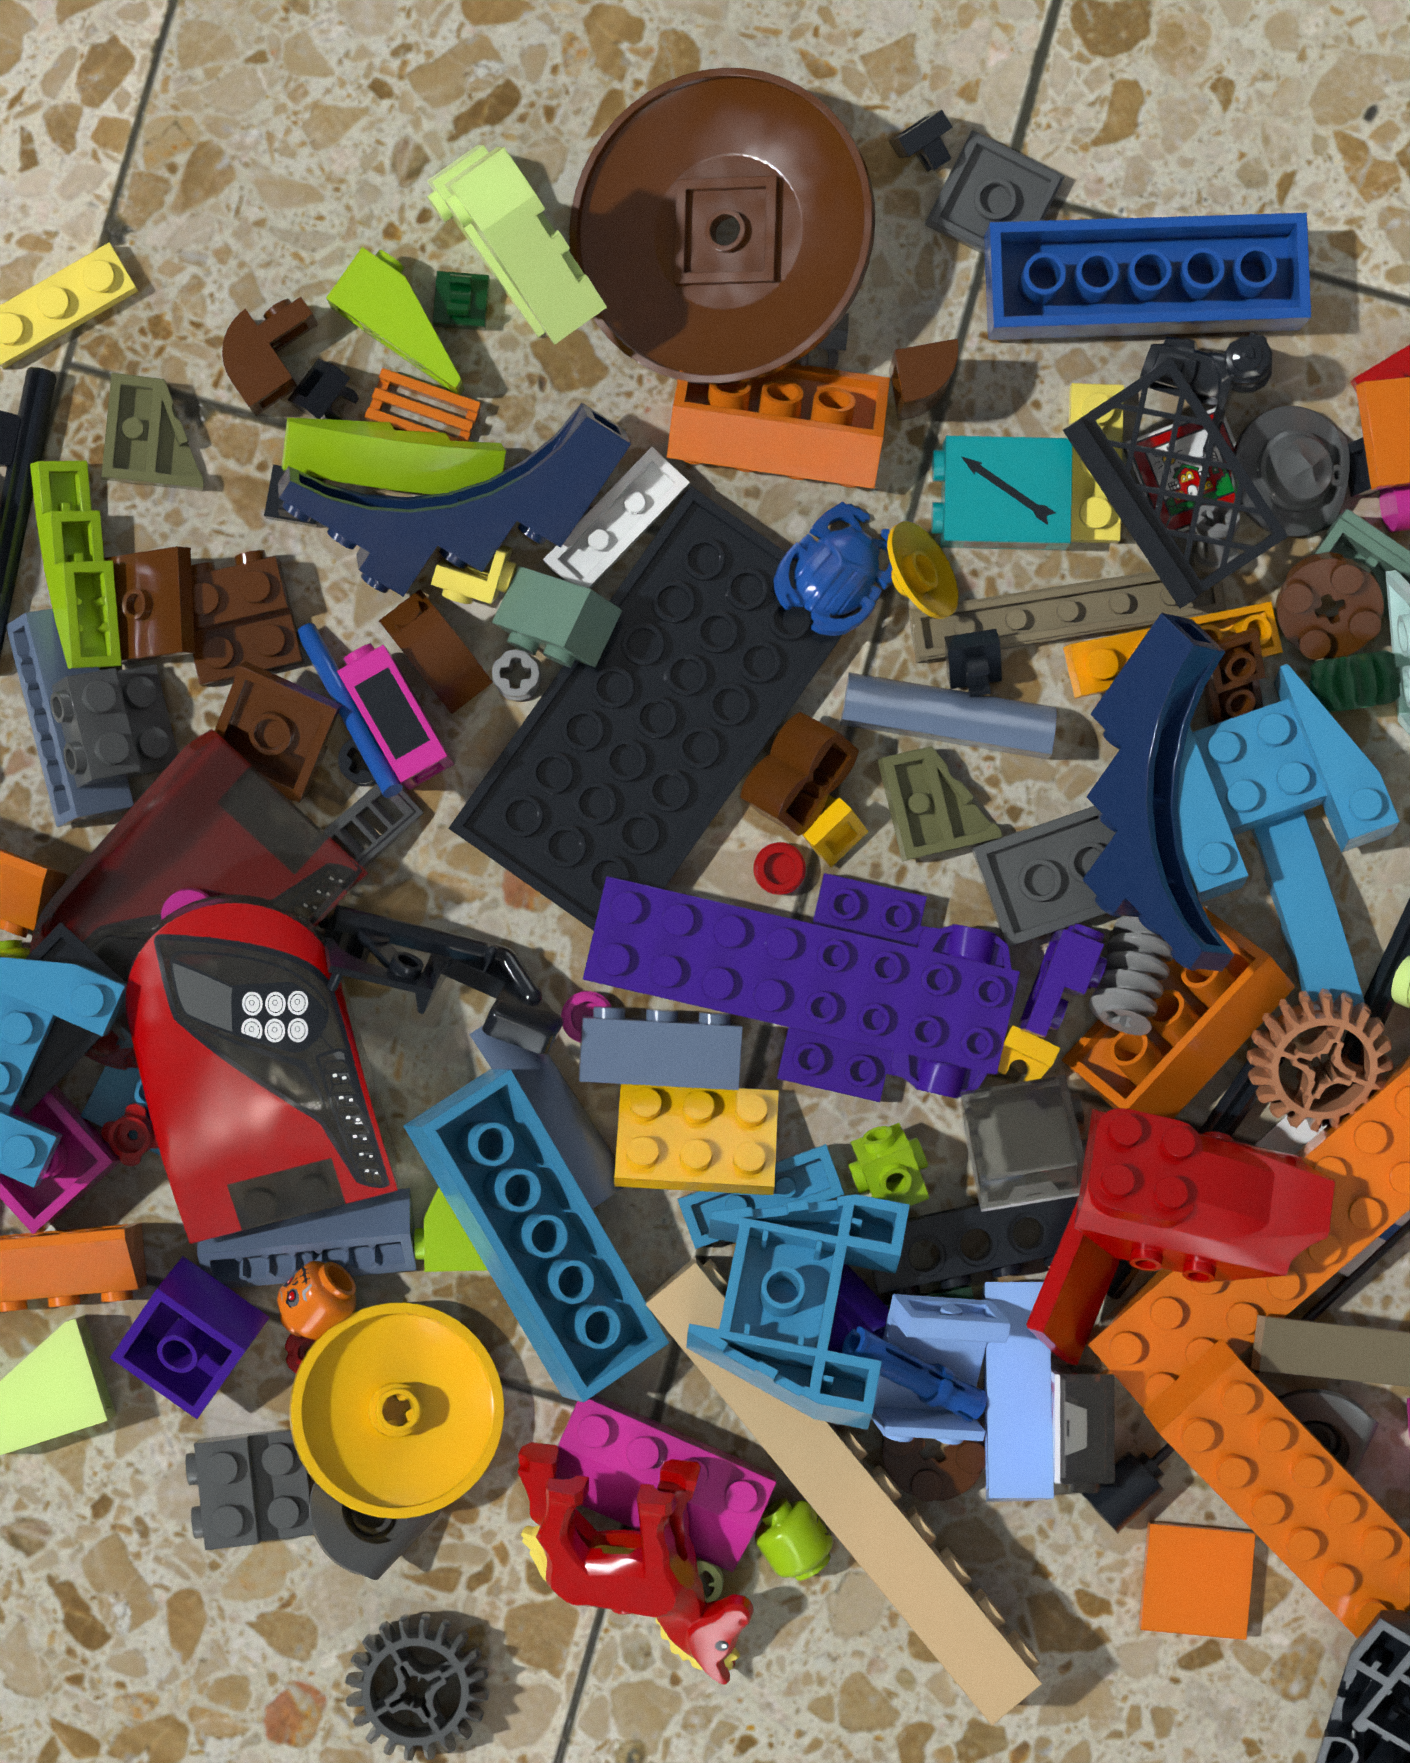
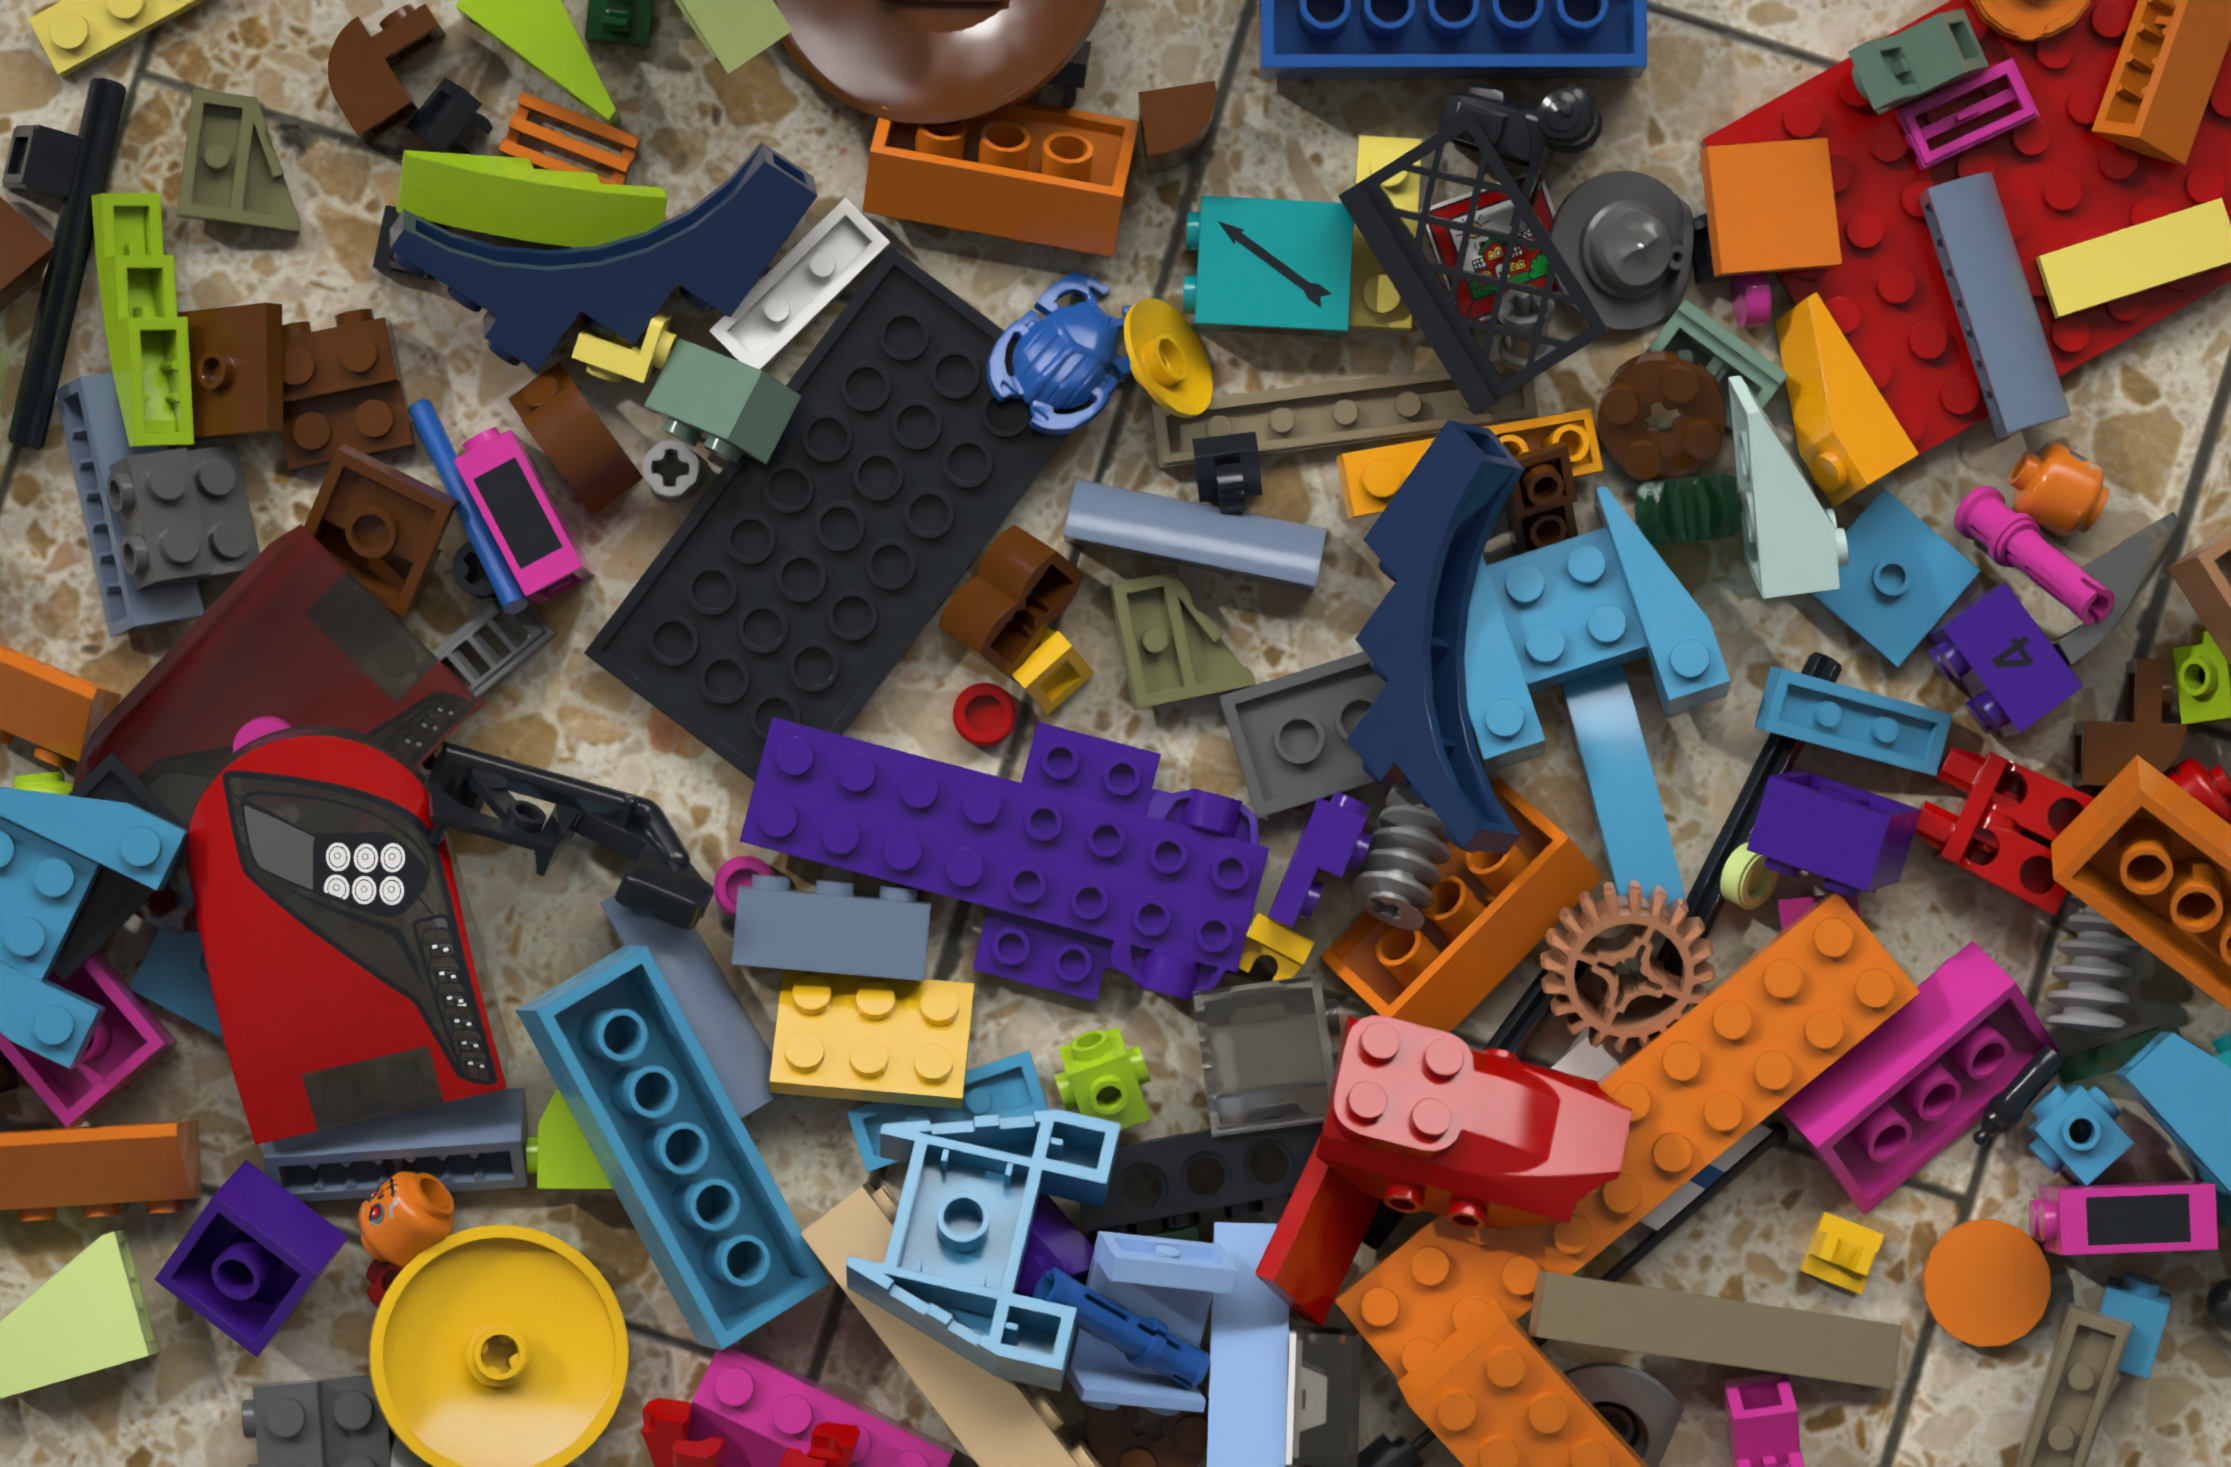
camera: 10 degrees right, 0 degrees up
(118, 1135) = (172, 1008): red plate -> none

